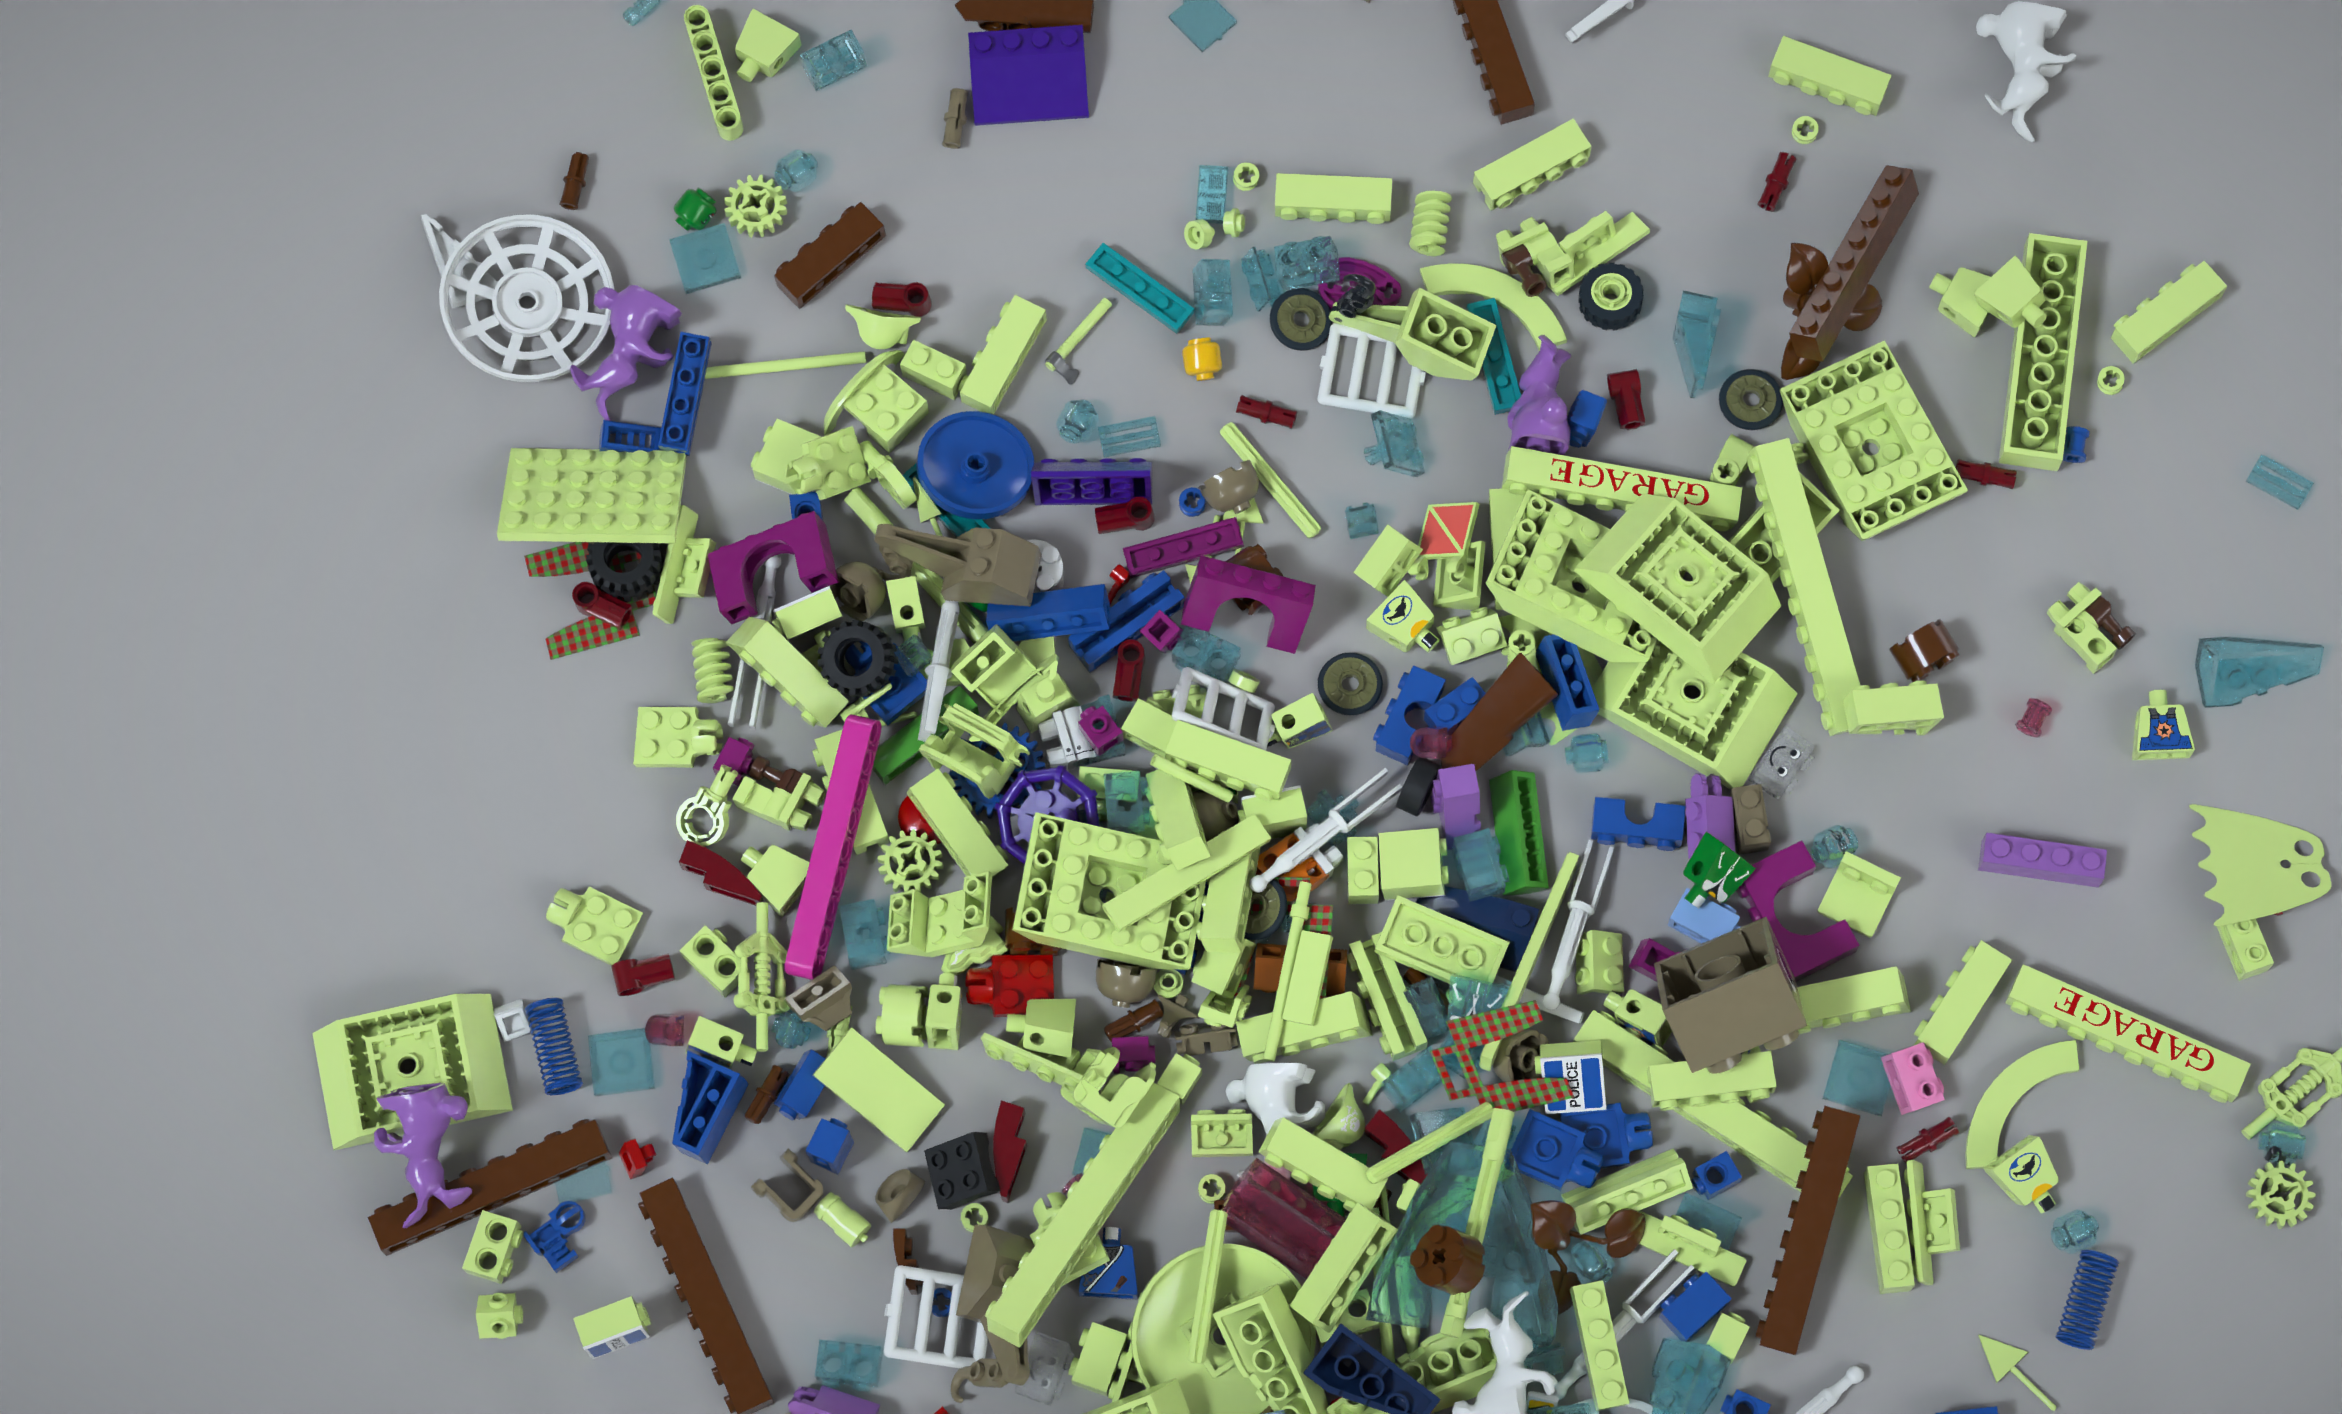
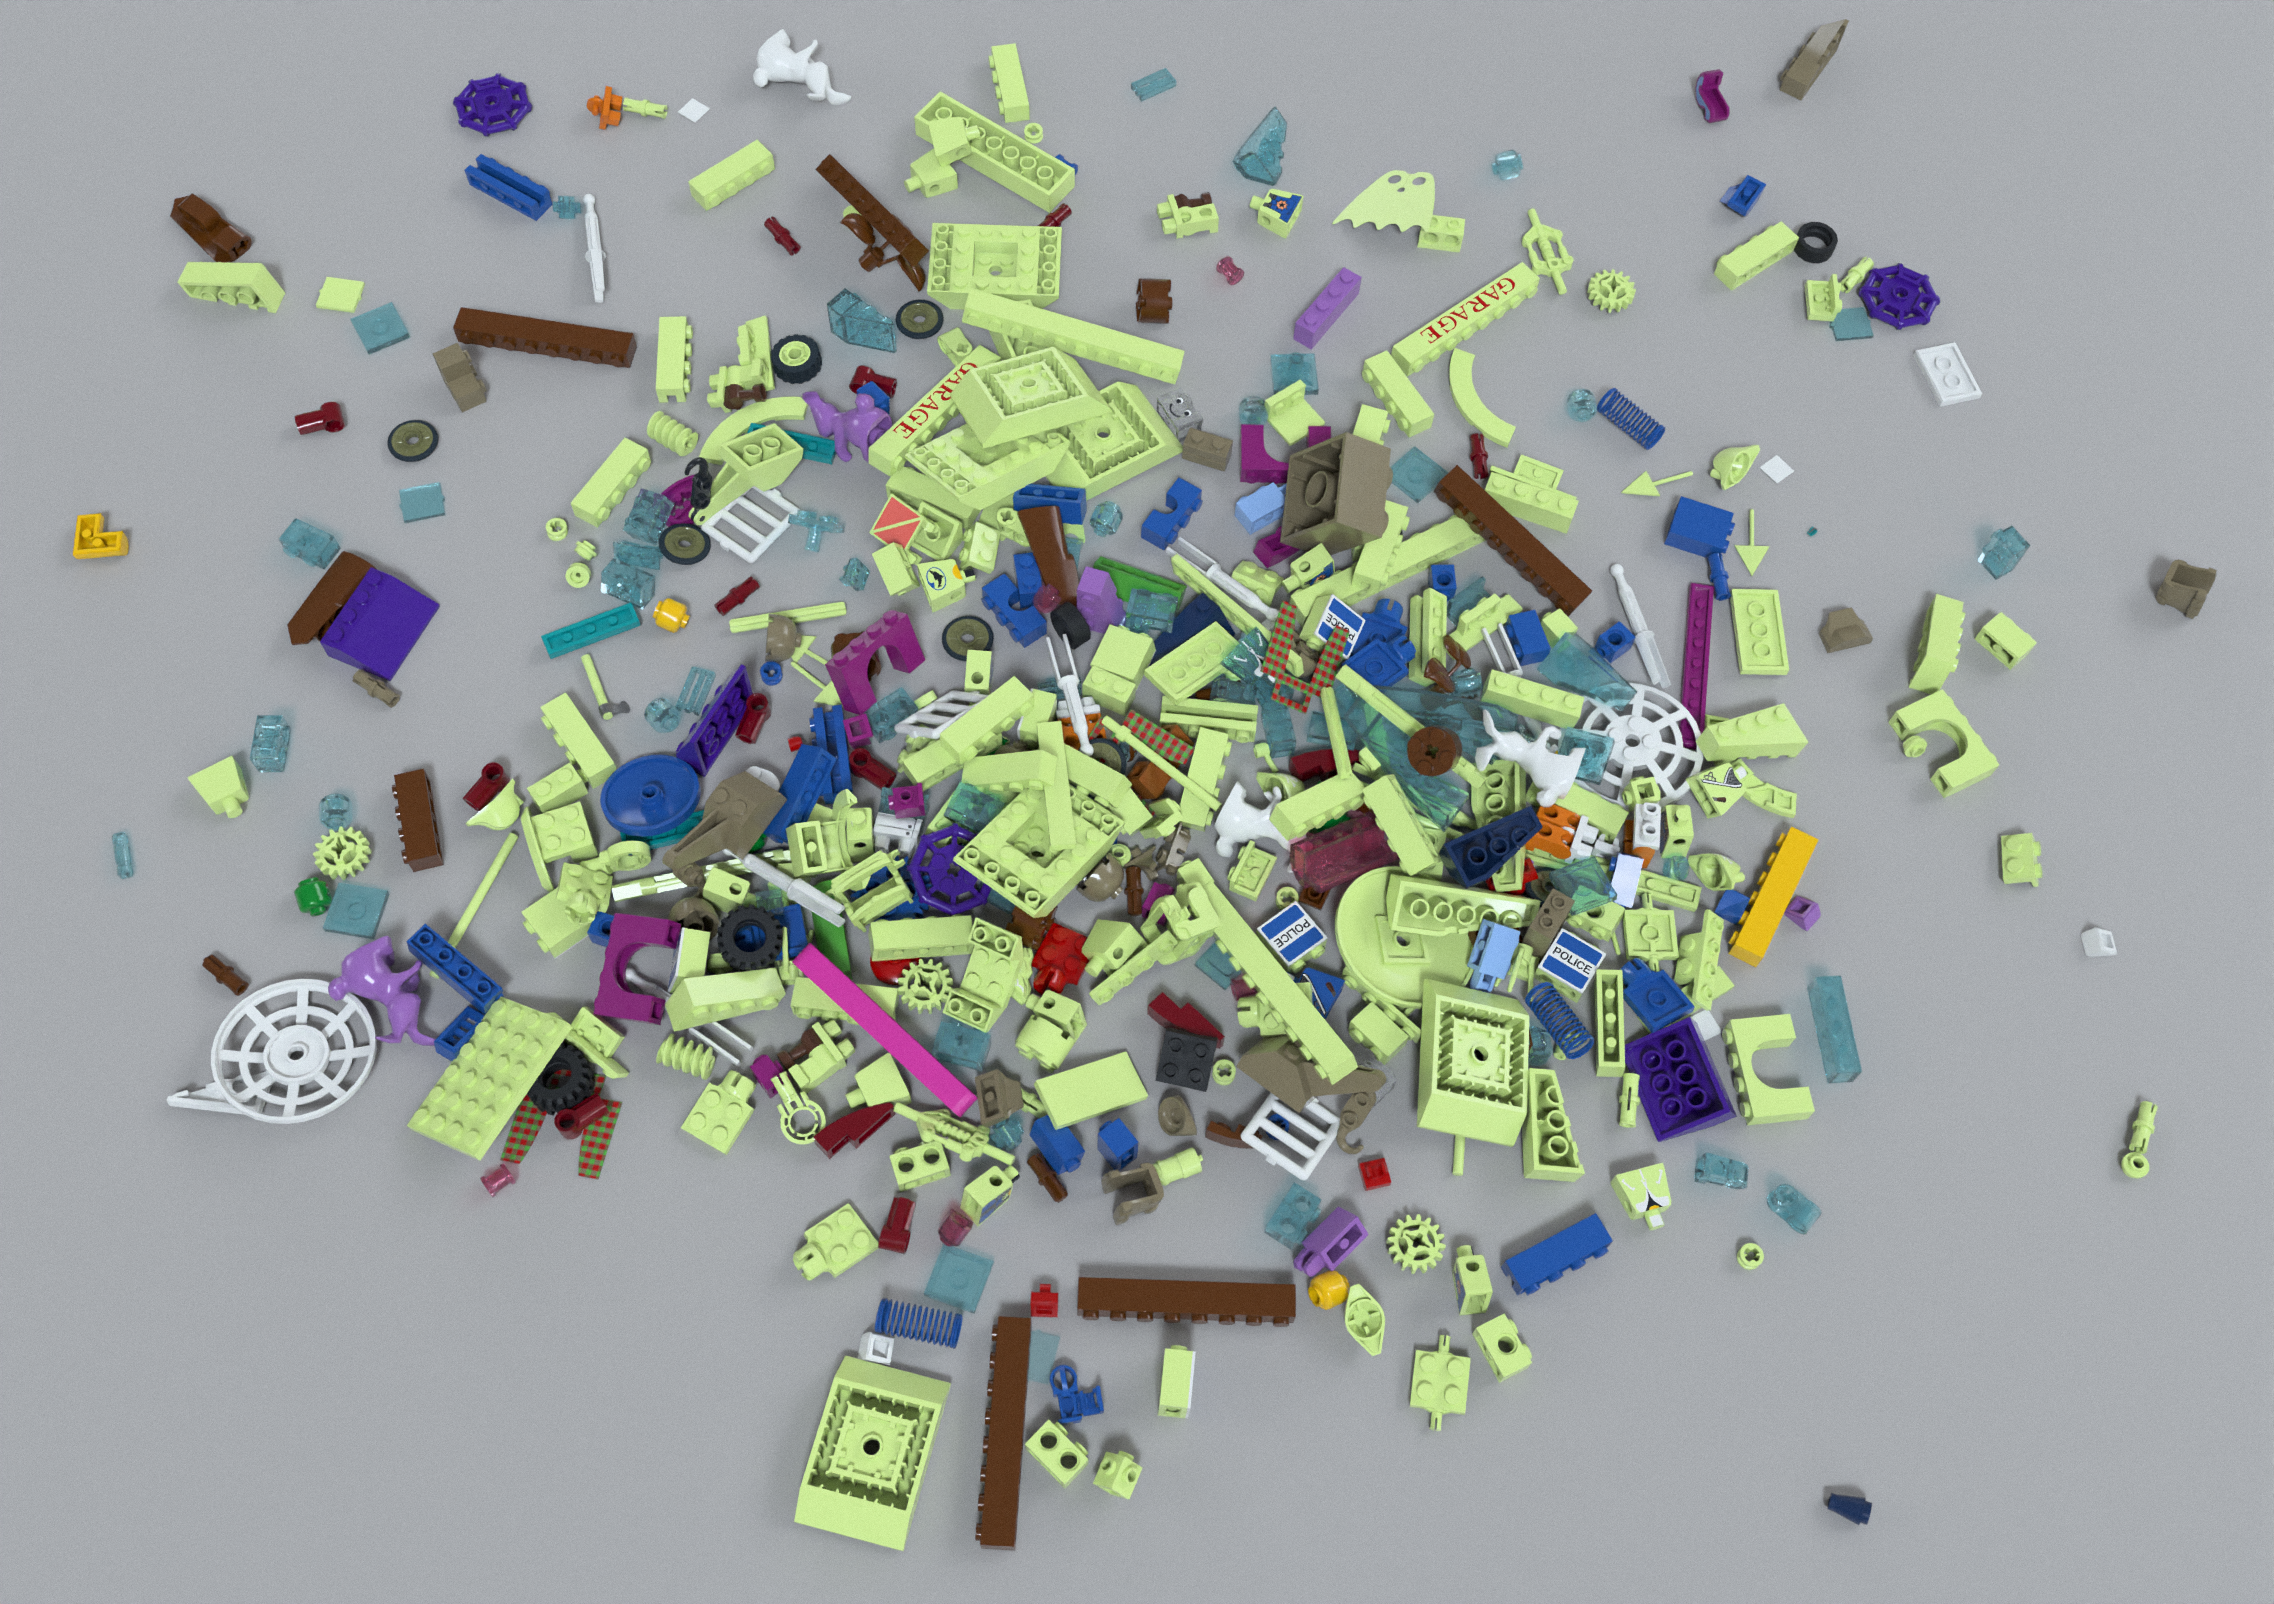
camera: 70 degrees left, 10 degrees down
(425, 1116) = (929, 1445): medium lavender animal -> none
(499, 567) = (498, 1180): none -> clear pink bush
(706, 1106) = (1032, 1224): blue wedge -> none
(712, 60) = (225, 837): yellowish green beam -> none
(926, 507) = (659, 842): yellowish green piece -> none
(1162, 1215) = (1292, 938): none -> piece
(1183, 547) = (801, 693): magenta tile -> none
(1191, 778) = (986, 749): yellowish green piece -> none
(1207, 1286) = (1369, 922): yellowish green axle -> none
(1212, 193) = (553, 555): clear light blue tile -> none
(1307, 978) = (1174, 750): yellowish green tile -> none
(1708, 812) = (1196, 469): medium lavender hinge -> none
(1715, 871) = (1237, 476): green torso -> none
(1811, 136) = (756, 201): yellowish green bush -> none
(1893, 708) = (1185, 327): yellowish green wedge -> none
(1913, 1078) = (1435, 441): bright pink brick -> none
(1923, 867) = (1292, 367): none -> clear light blue plate
(2025, 1173) = (1530, 411): yellowish green torso -> none
(2282, 1143) = (1578, 275): clear light blue head -> none

